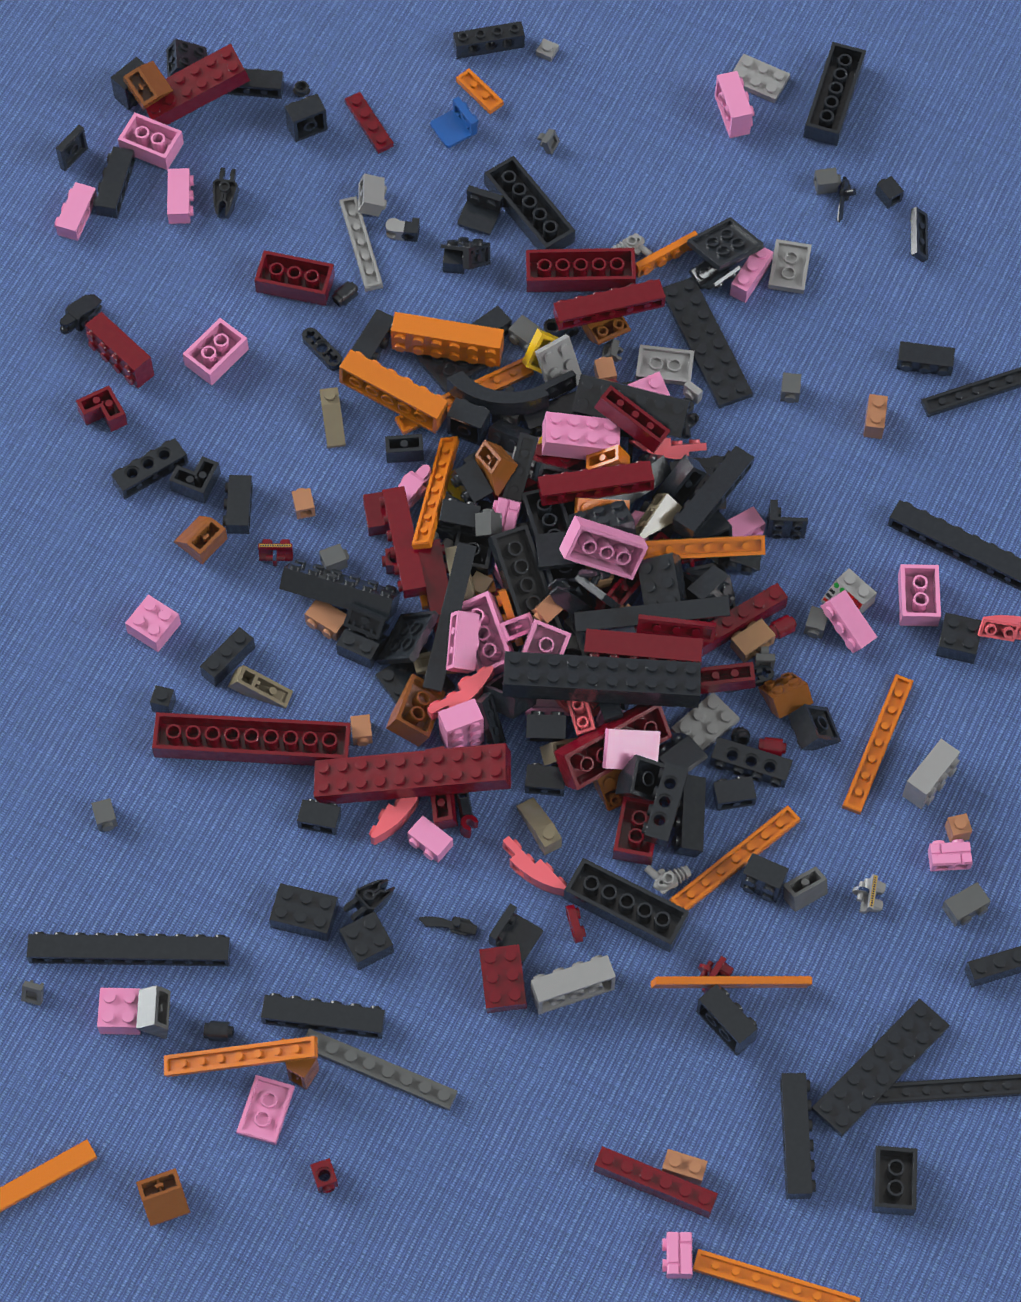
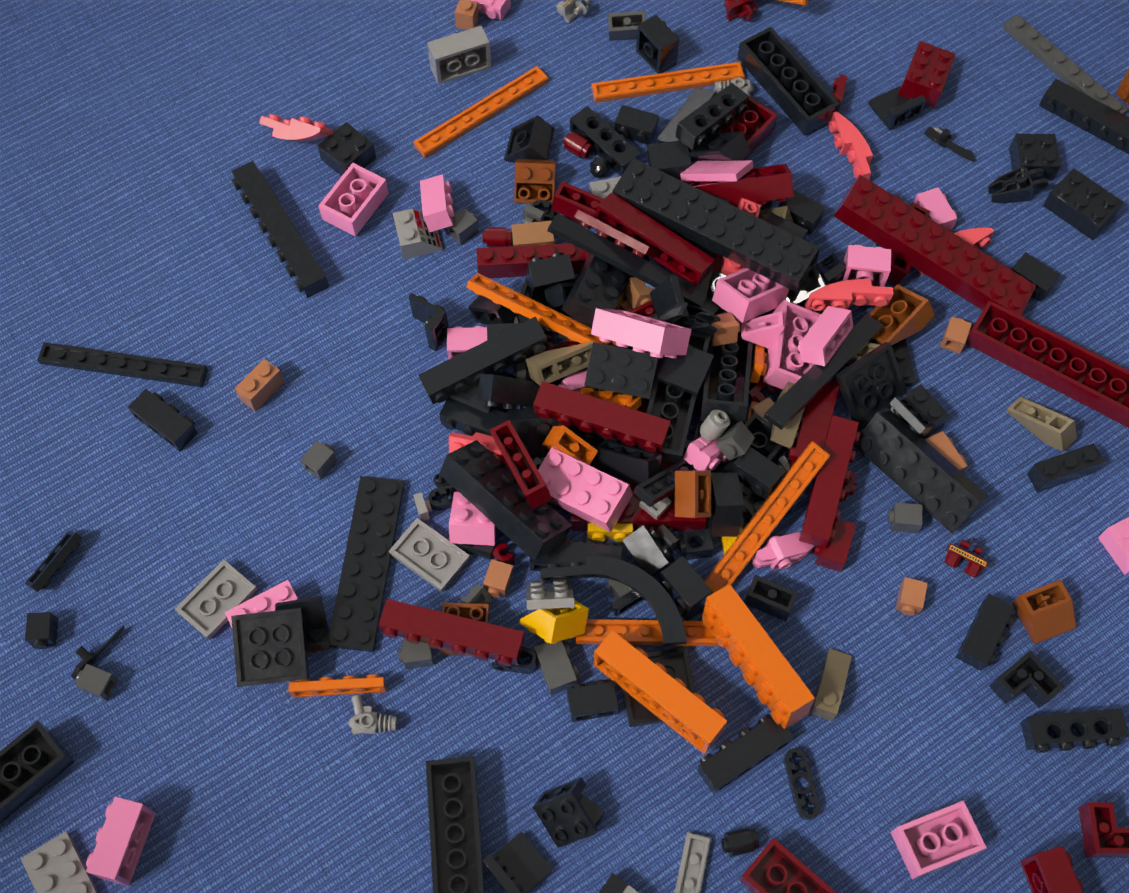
camera: 150 degrees left, 0 degrees up
(514, 521) = (714, 425): none -> light grey brick
(540, 826) = (826, 177): dark tan slope -> none
(572, 984) = (870, 41): light grey brick -> none
(579, 269) = (449, 714): dark red brick -> none

